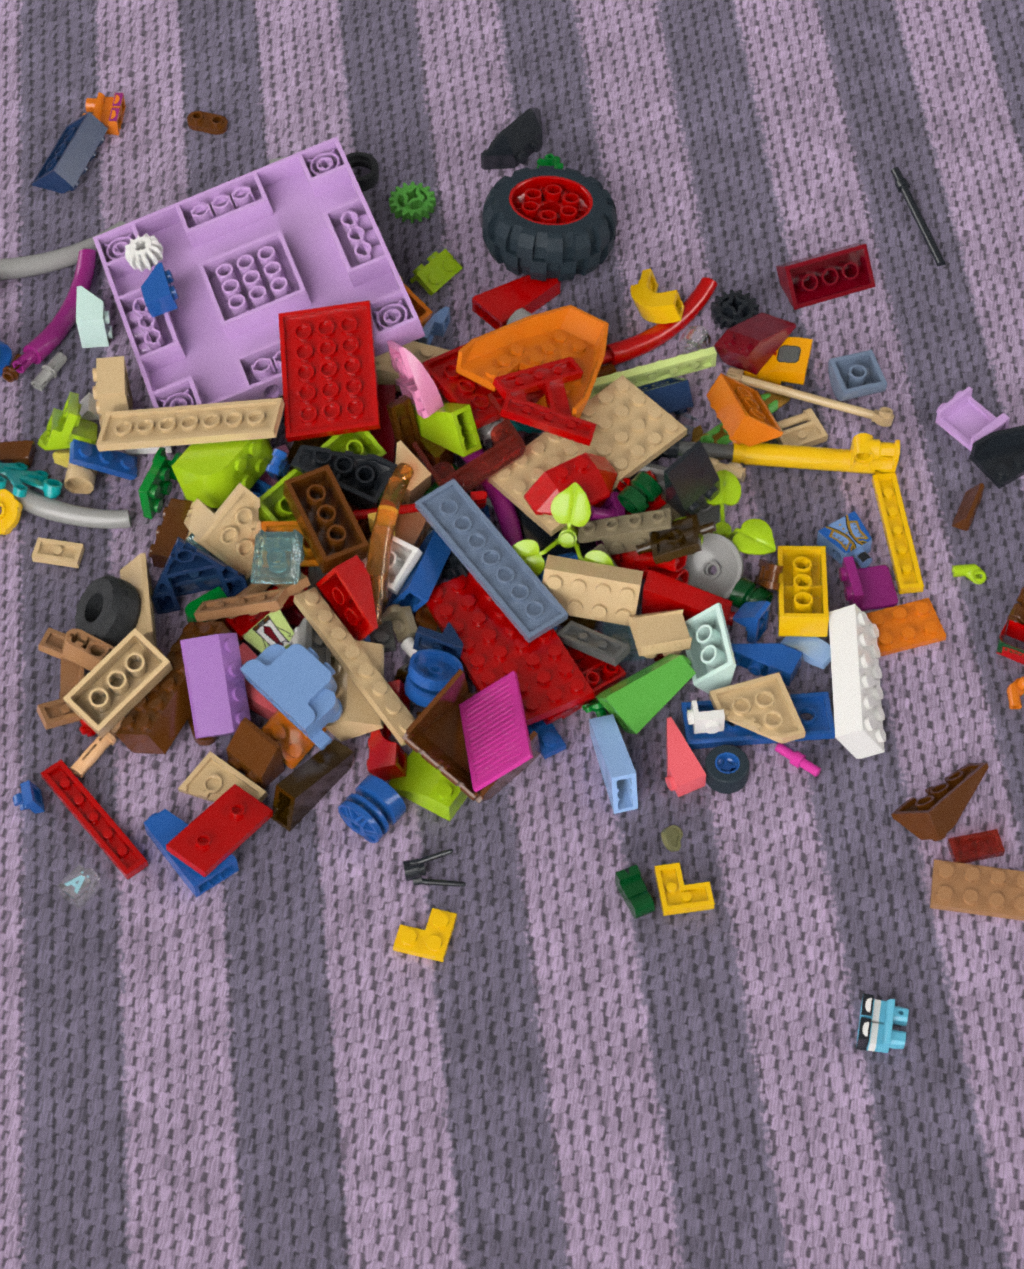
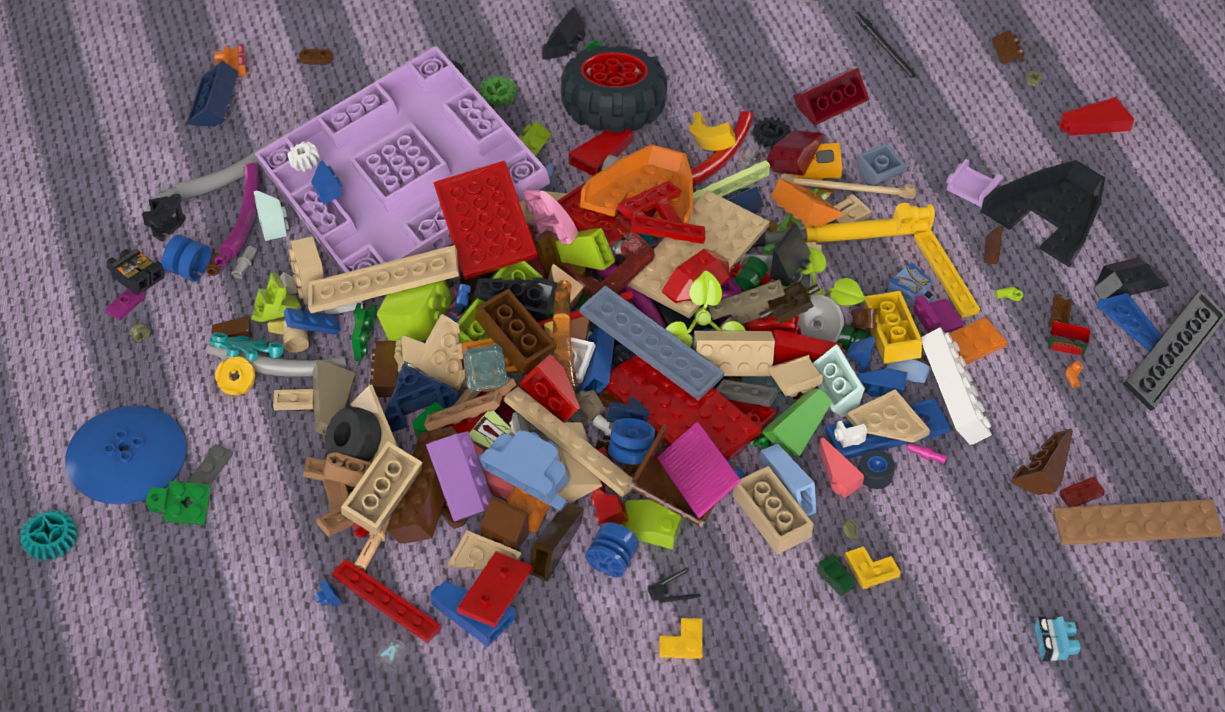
camera: 15 degrees left, 5 degrees down
(101, 550) = (330, 392): none -> dark tan slope
(581, 796) = (773, 510): none -> tan brick

